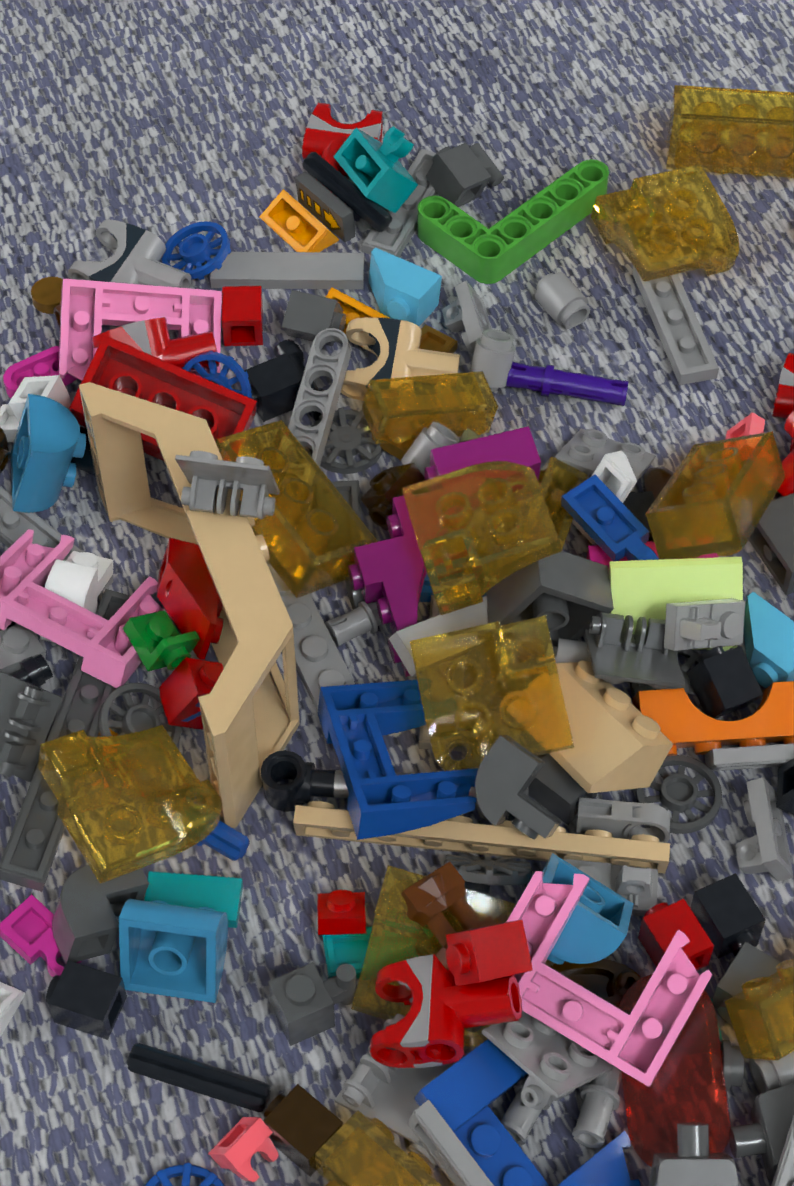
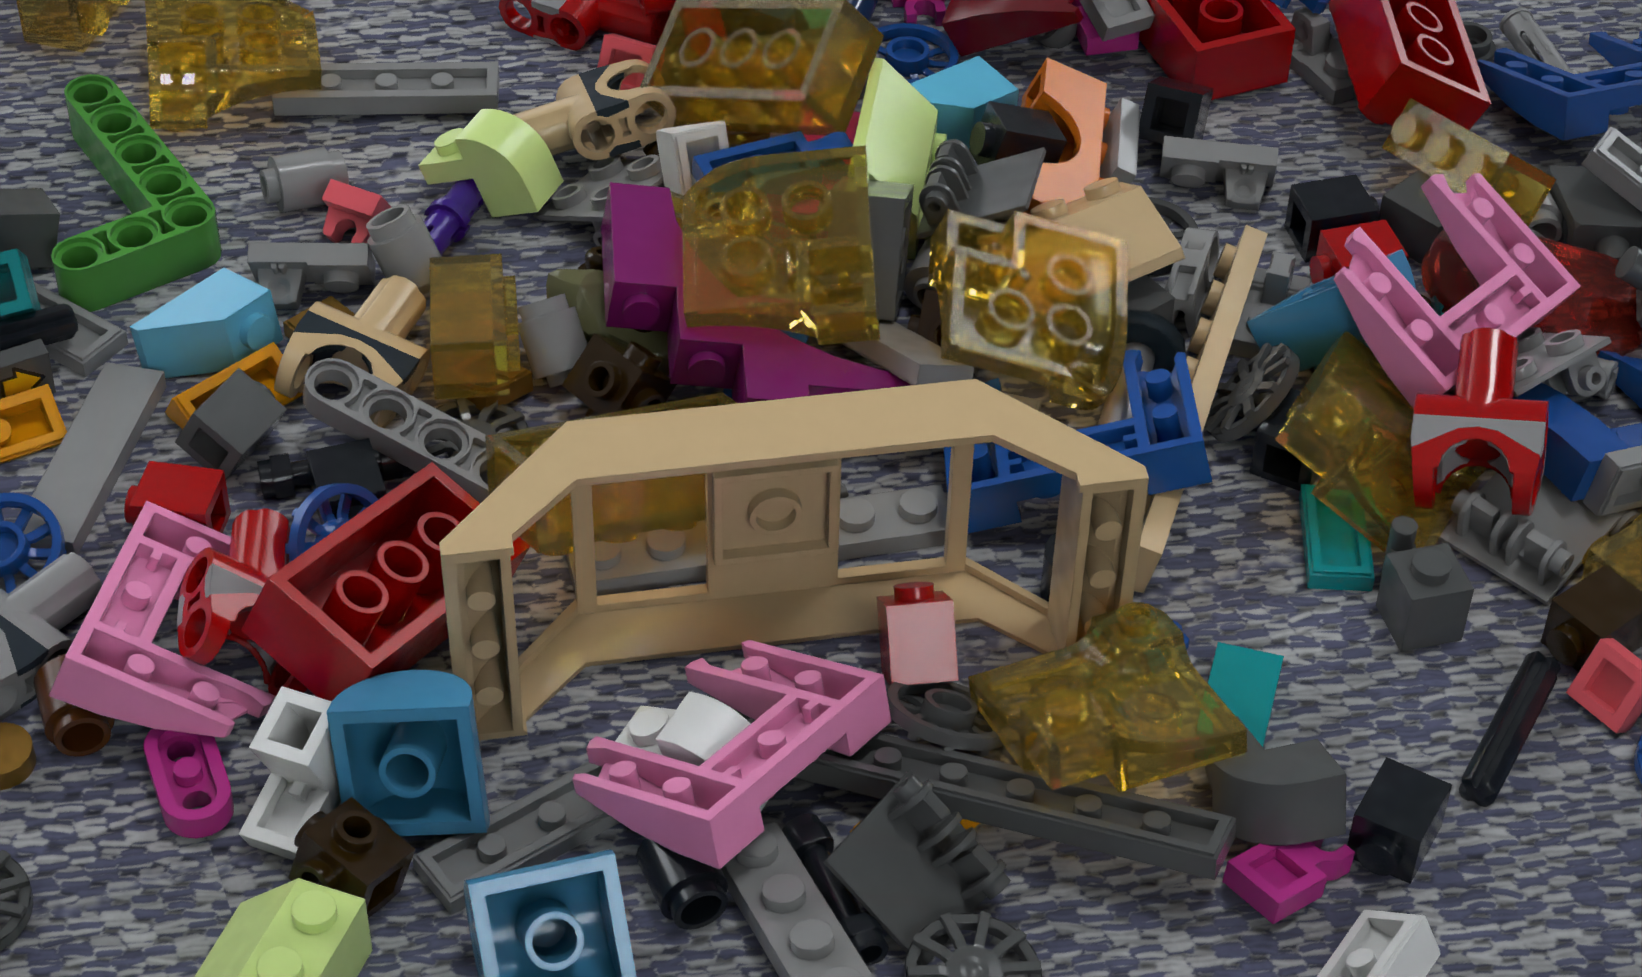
camera: 80 degrees left, 10 degrees down
(159, 641) = (847, 641): green bracket -> none
(172, 949) = (1334, 695): dark azure brick -> none
(190, 594) = (762, 598): red slope -> none
(245, 475) = (747, 386): light grey hinge -> none
(341, 913) = (1286, 549): red plate -> none
(434, 896) = (1381, 373): reddish brown piece -> none
(488, 952) = (1449, 330): red brick -> none
(501, 788) = (1171, 311): dark grey brick -> none
(536, 333) = (349, 209): none -> coral tile
(597, 389) = (502, 157): none -> yellowish green brick
(663, 430) = (598, 115): none -> tan connector
(704, 624) = (962, 115): light grey hinge -> none

